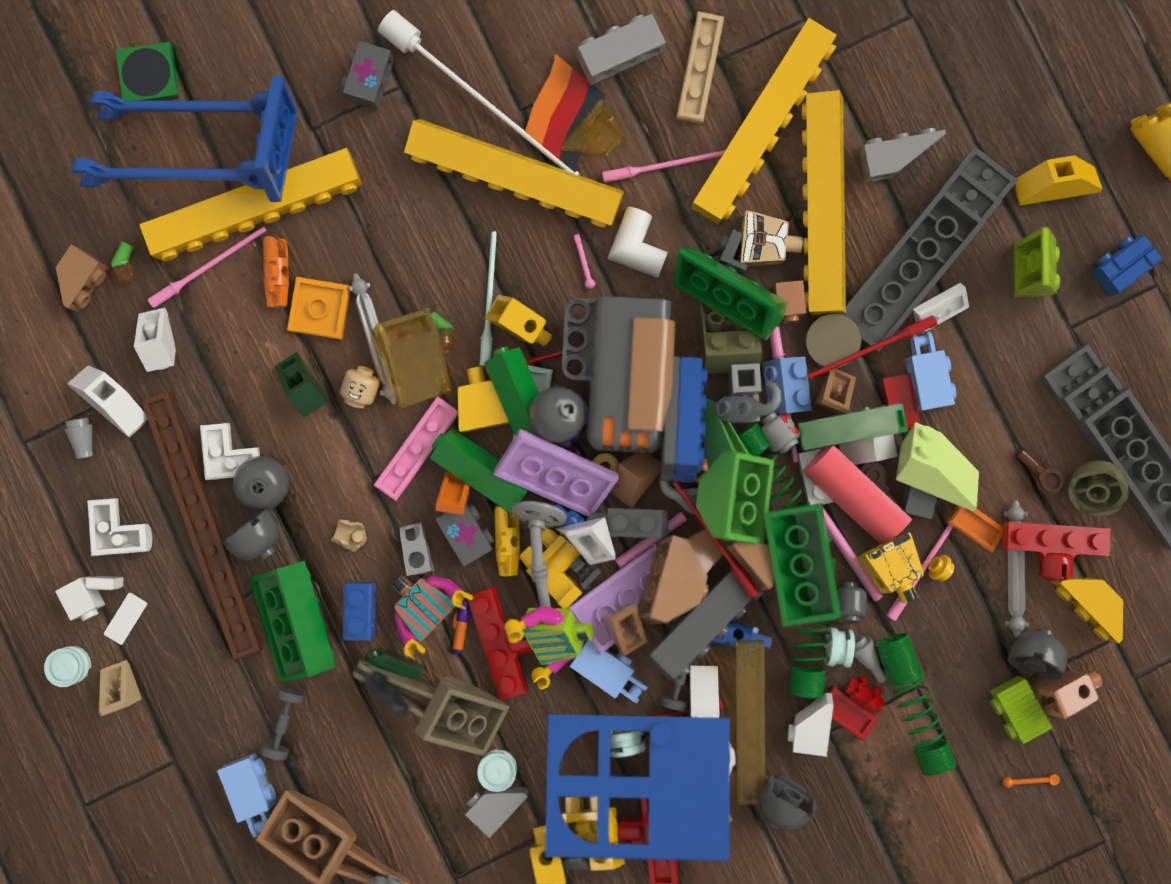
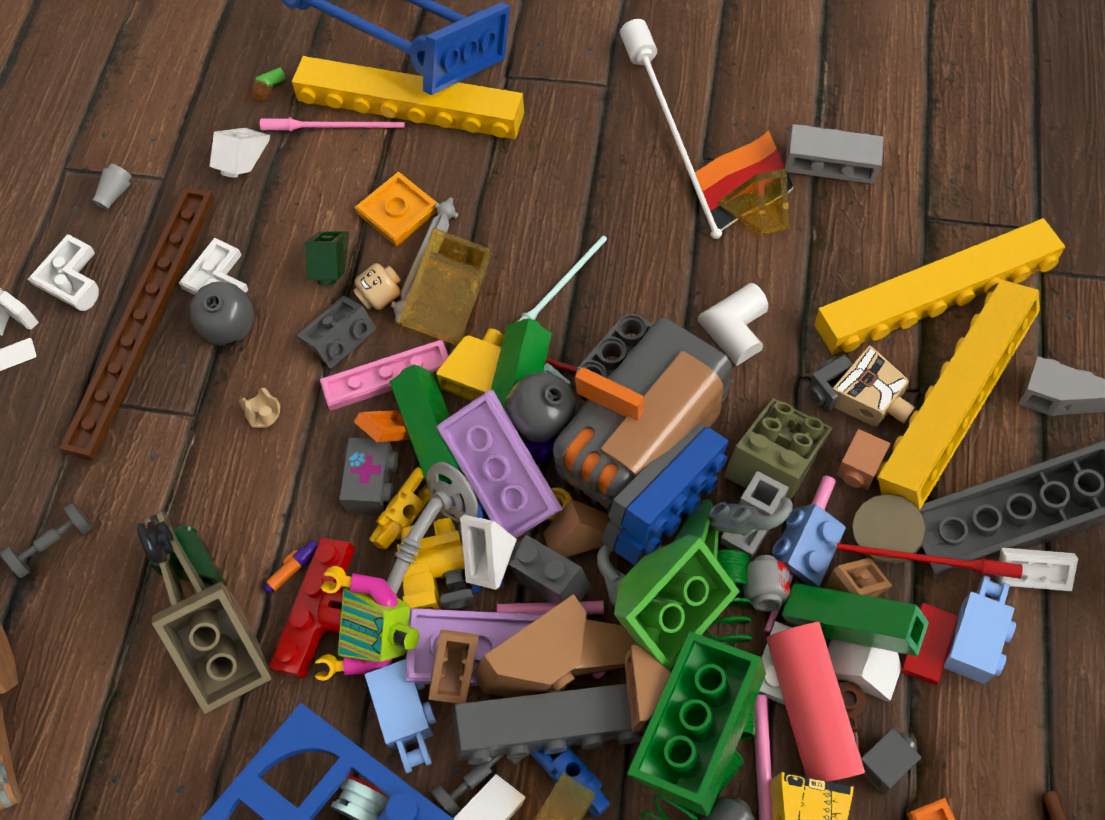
camera: 45 degrees right, 25 degrees down
(78, 276) = (221, 72): medium nougat slope -> none
(109, 399) = (160, 174): white slope -> none
(254, 537) = (173, 348): dark grey cylinder -> none
(275, 271) = (383, 157): orange hinge -> none
(292, 622) = (142, 452): green slope -> none
(355, 440) = (337, 331): none -> dark grey bracket
(359, 610) = (209, 480): blue brick -> none
(367, 75) = (586, 58): dark grey brick -> none
(415, 550) = (307, 463): light grey leg -> none
(424, 608) = (269, 520): torso -> none
(445, 331) = (492, 291): clear orange arm -> none
(492, 809) = (167, 779): light grey slope -> none
(497, 770) = (204, 740): light aqua wheel -> none
(514, 172) = (663, 197): yellow brick -> none
(518, 320) = (565, 301): yellow torso -> none
(589, 283) = (678, 291): bright pink hinge -> none
(610, 387) = (609, 394): none -> orange tile
(629, 172) = (774, 259): bright pink piece -> none
(700, 67) = (902, 213): tan tile -> none
(728, 292) = (801, 404): green slope -> none
(738, 571) = (619, 688): red piece -> none
(937, 467) = (933, 732): yellowish green slope -> none

